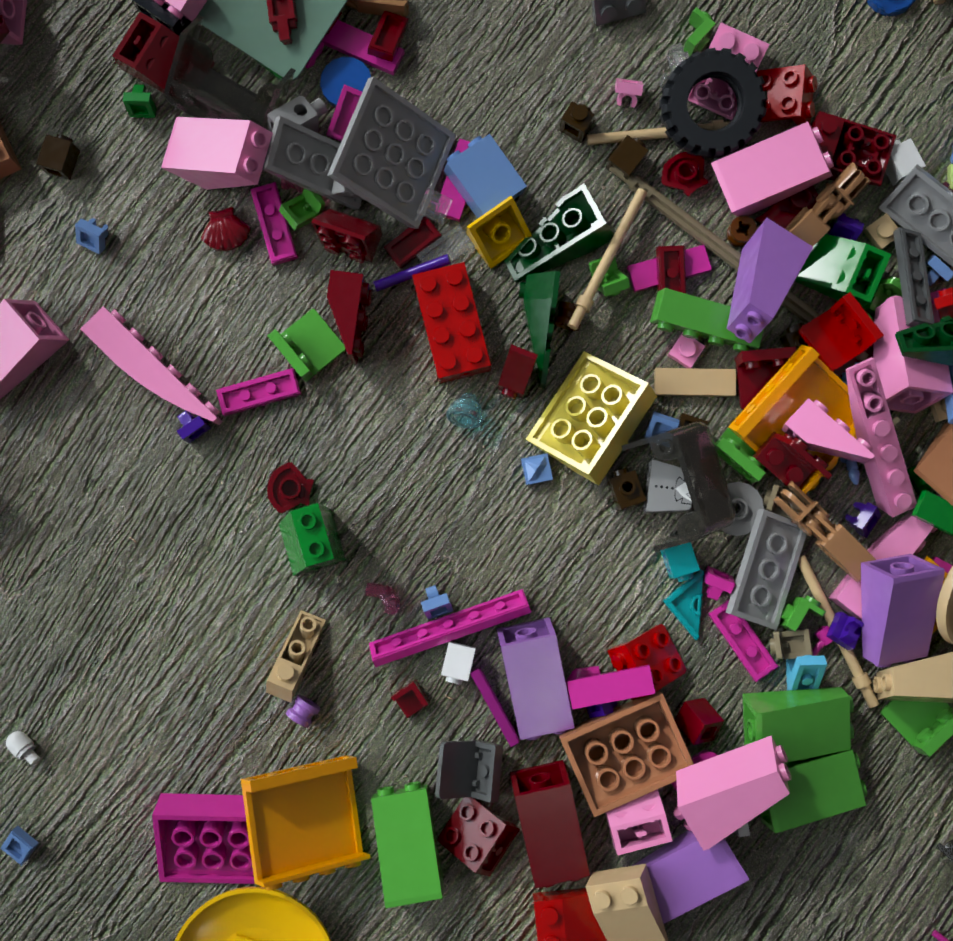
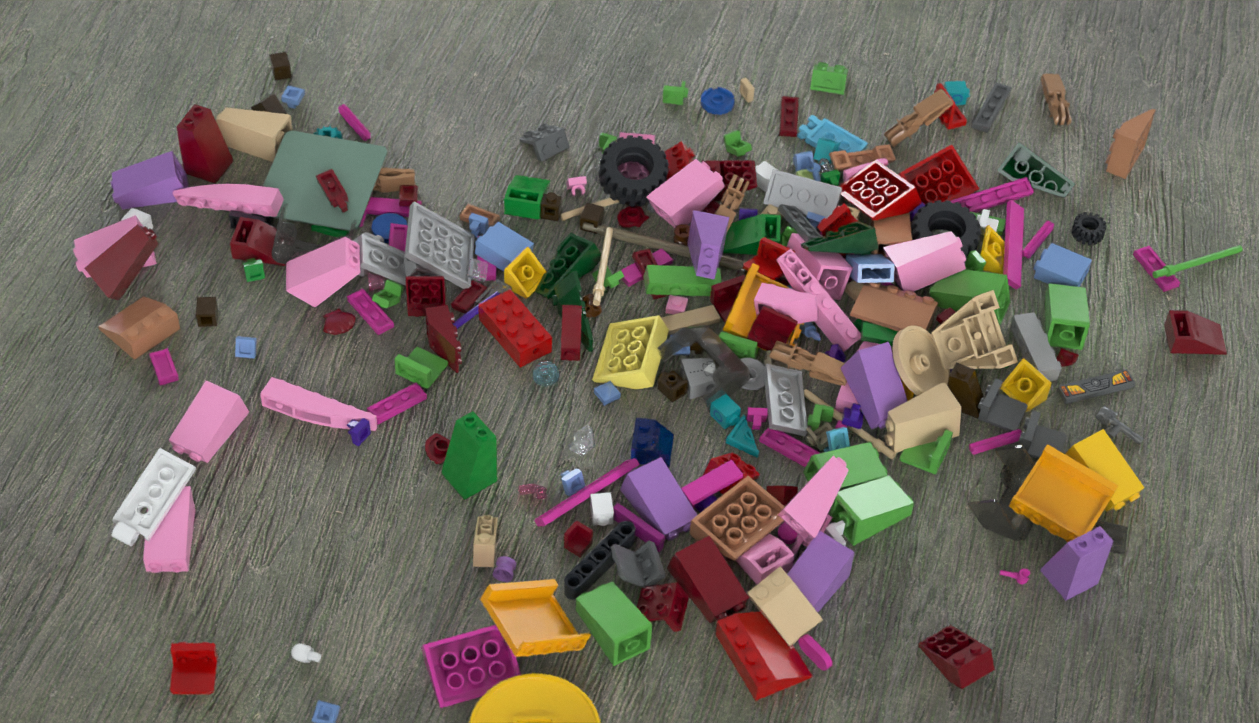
camera: 25 degrees left, 35 degrees down
(419, 751) = (598, 560): none -> black beam
(465, 121) = (478, 224): none -> medium blue tile
(474, 544) = (583, 440): none -> clear bracket
(475, 103) = (492, 217): none -> nougat tile
(551, 87) = (525, 196): none -> green slope
(562, 578) = (651, 441): none -> clear blue slope
(884, 88) = (735, 145): none -> bright green bracket

